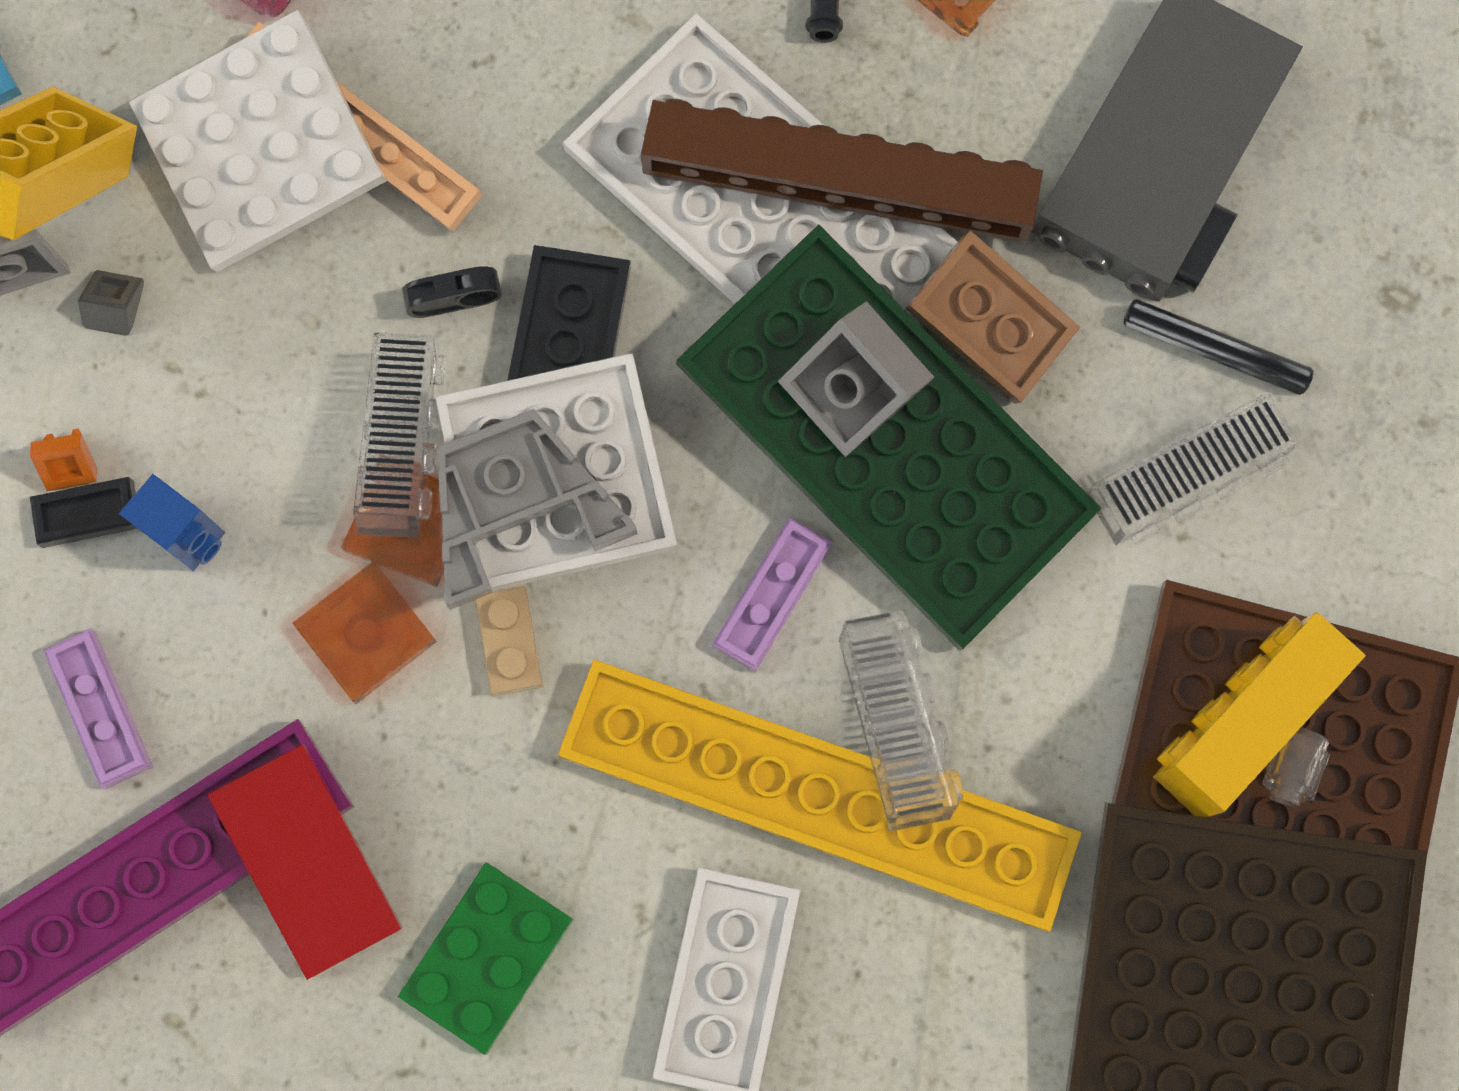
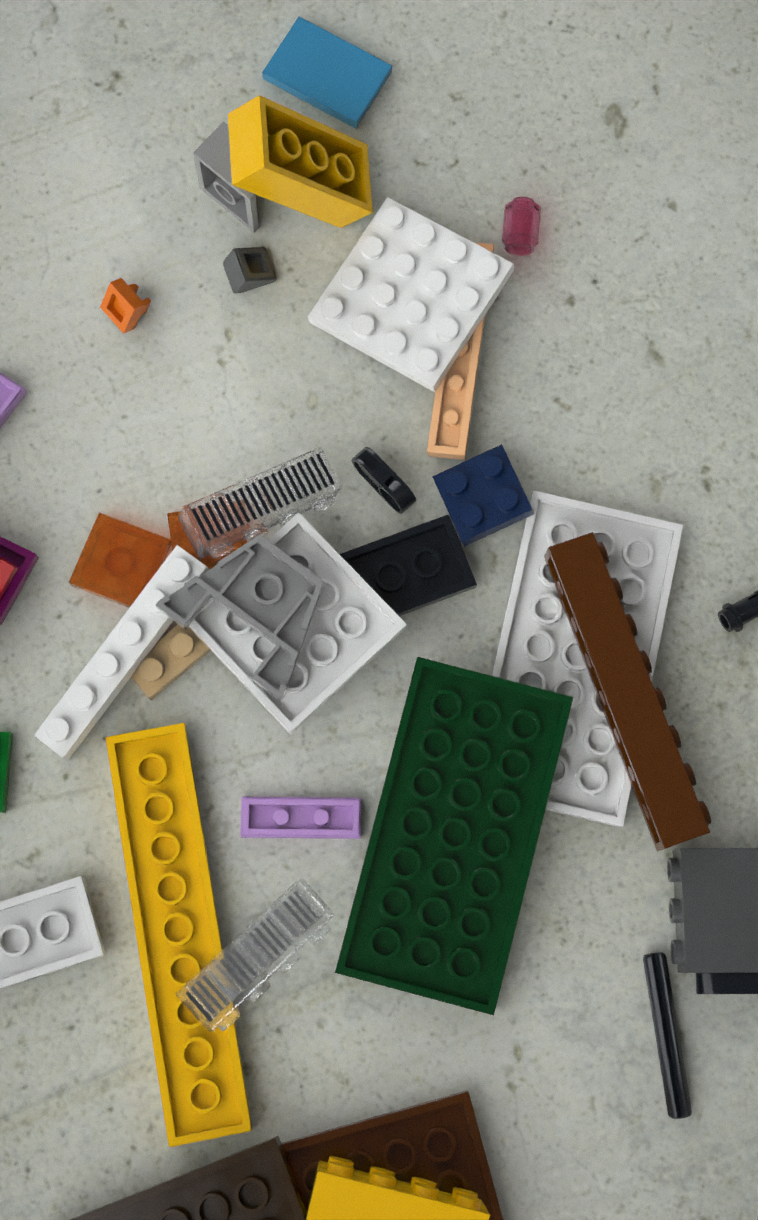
camera: 55 degrees right, 0 degrees up
(81, 512) = (99, 339): black tile -> none
(174, 523) = (117, 398): blue brick -> none
(473, 688) = (116, 658): none -> white plate
(535, 197) = (483, 495): none -> dark blue plate
(855, 378) = (475, 787): light grey slope -> none
(992, 317) = (586, 858): medium nougat plate -> none
(1192, 469) = (563, 1066): clear brick -> none

